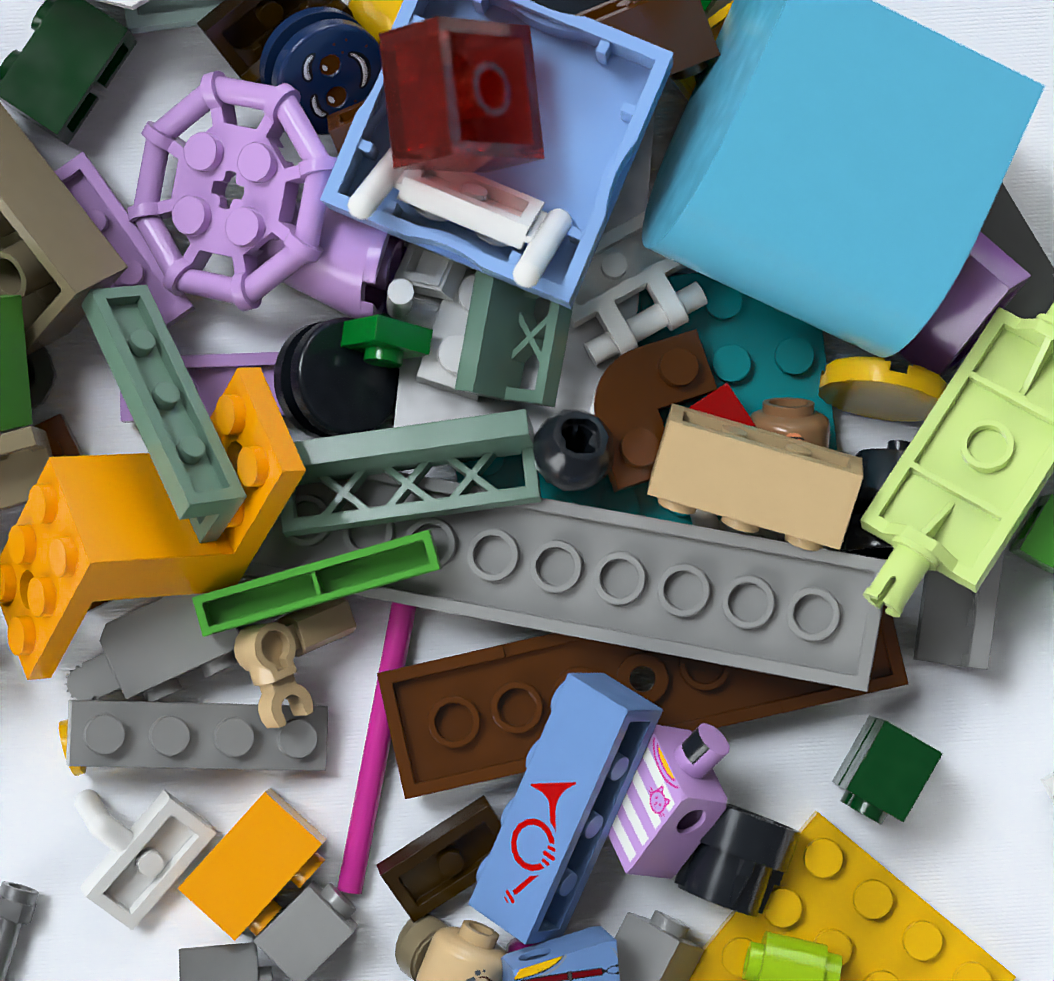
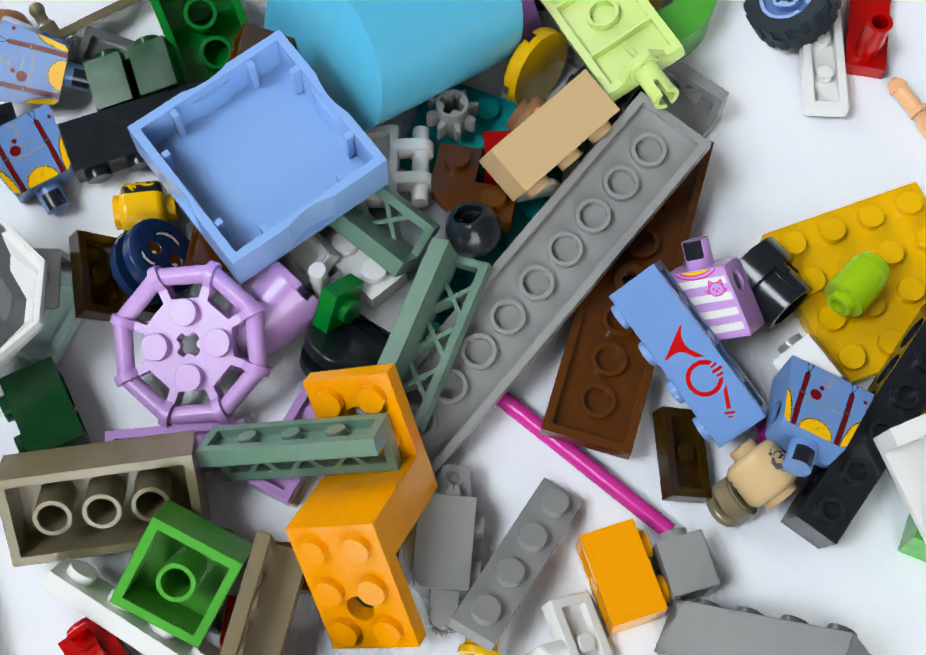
camera: 65 degrees left, 20 degrees down
(269, 653) = (493, 483): tan bar -> none
(317, 583) = (464, 423): bright green piece -> none
(461, 95) = (224, 150): clear red brick -> none
(480, 204) = (308, 181): white plate -> none
(731, 333) = (452, 114): none -> light grey gear
(885, 771) = (759, 175): dark green piece -> none

